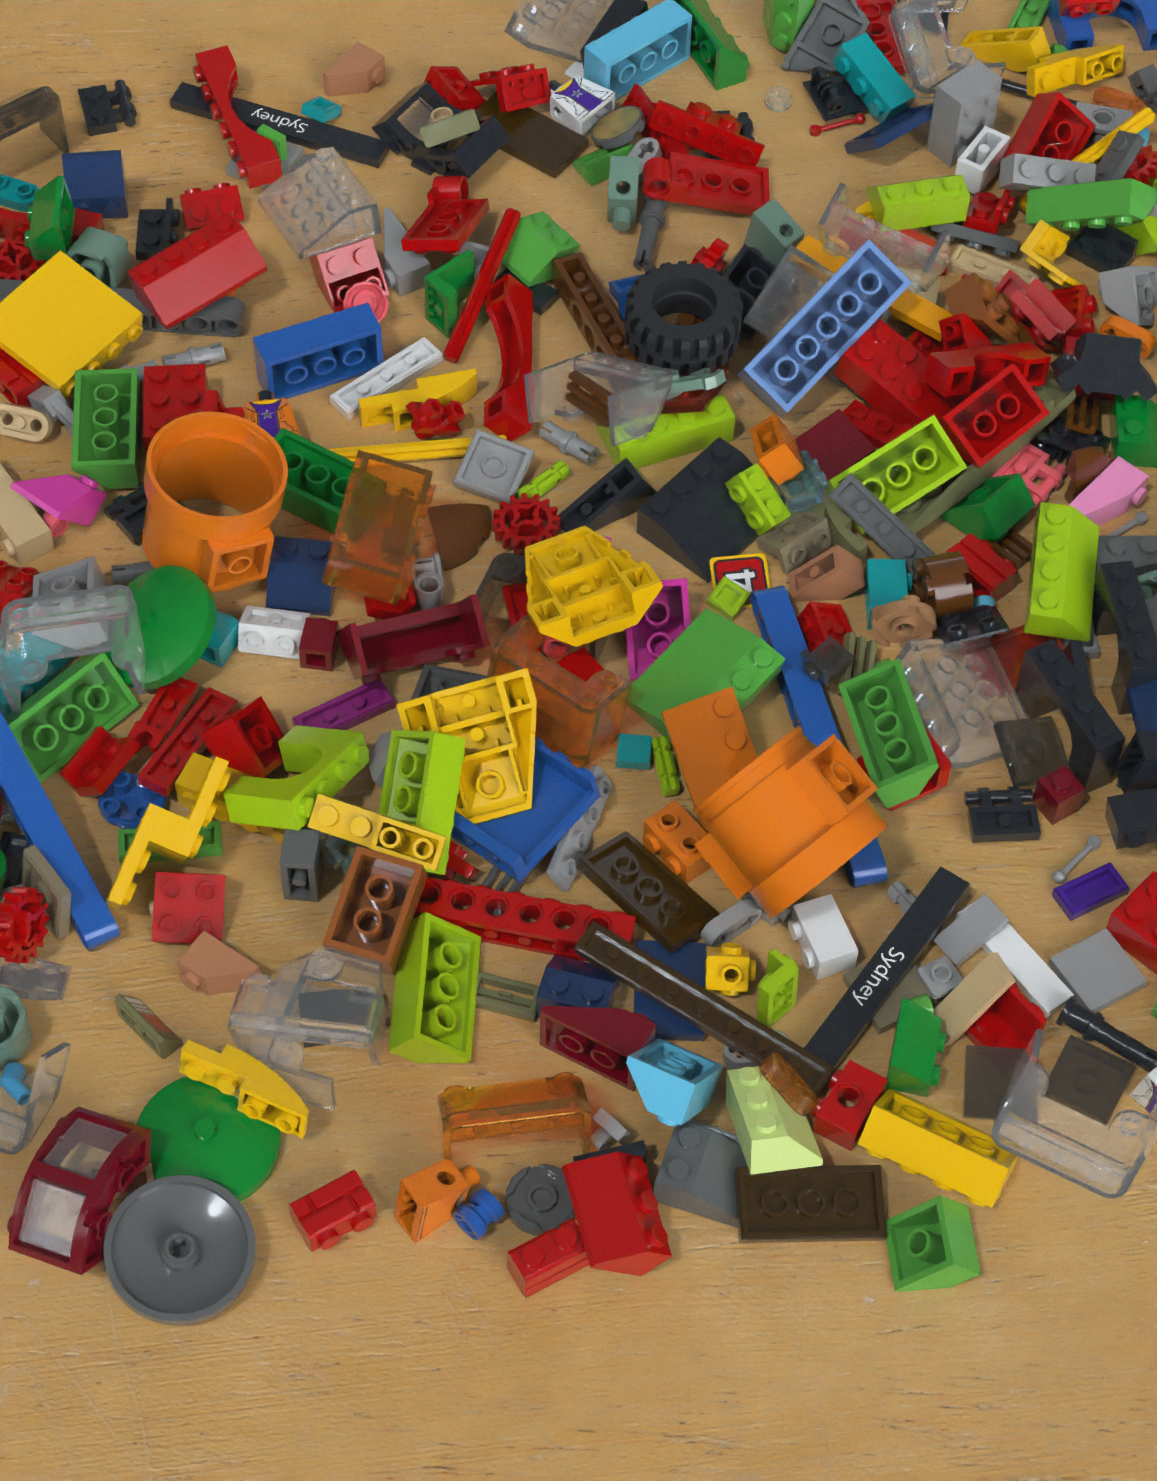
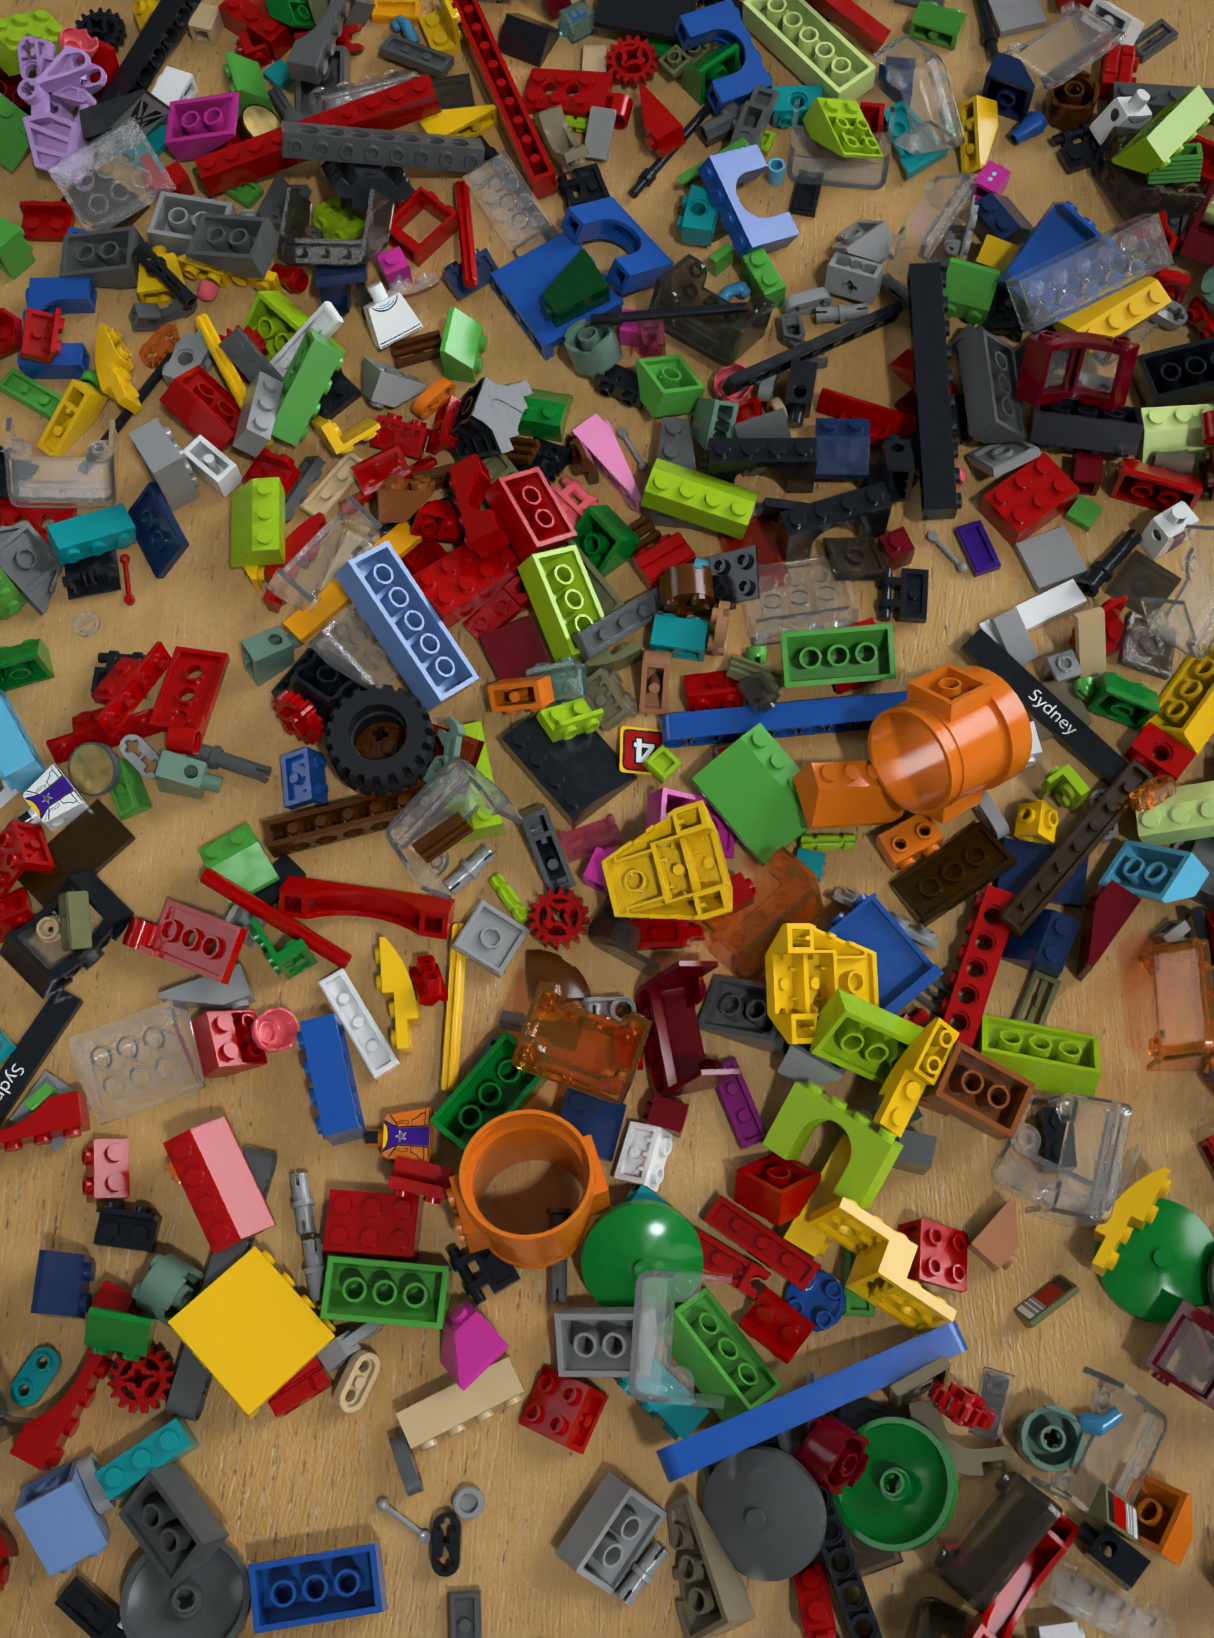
camera: 75 degrees left, 15 degrees up
(624, 535) = (583, 840): none -> clear pink hinge
(1044, 310) = (408, 451): red bracket -> none

